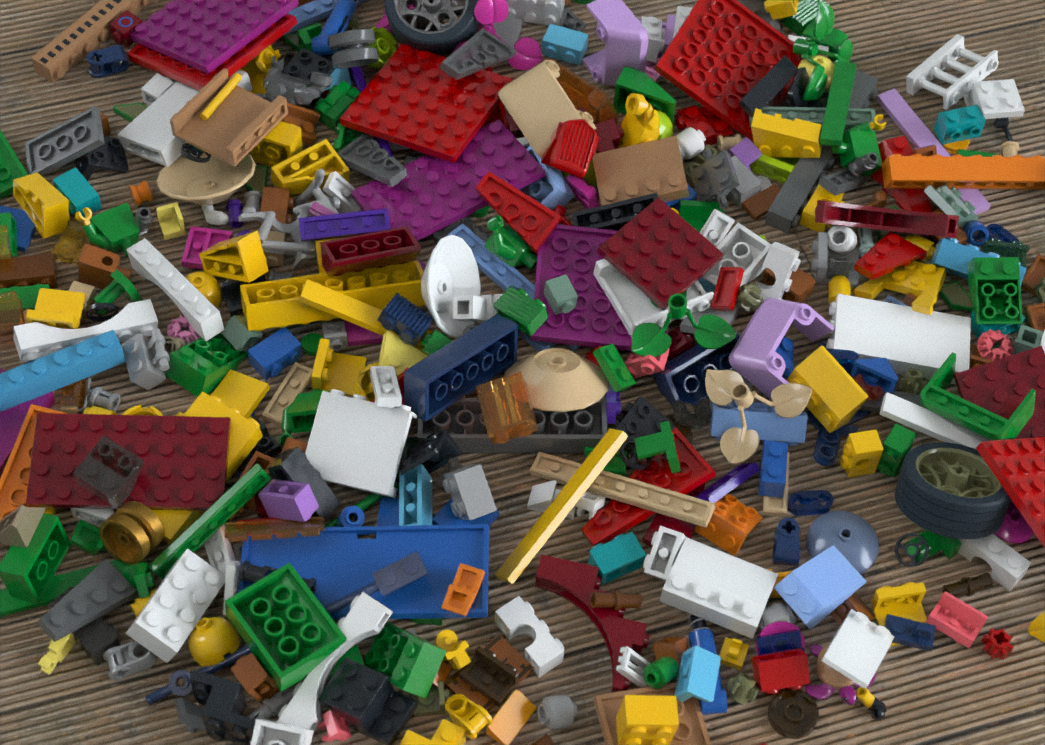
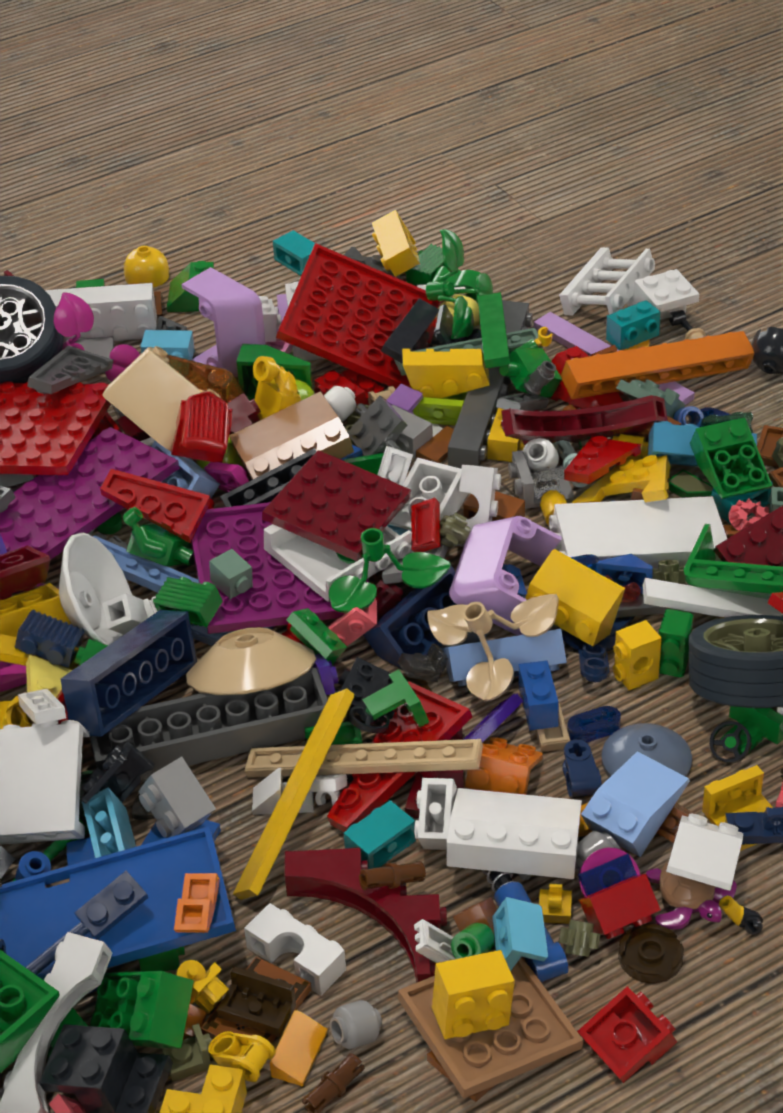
camera: 10 degrees left, 15 degrees down
(507, 408) = (198, 699): clear orange brick -> none

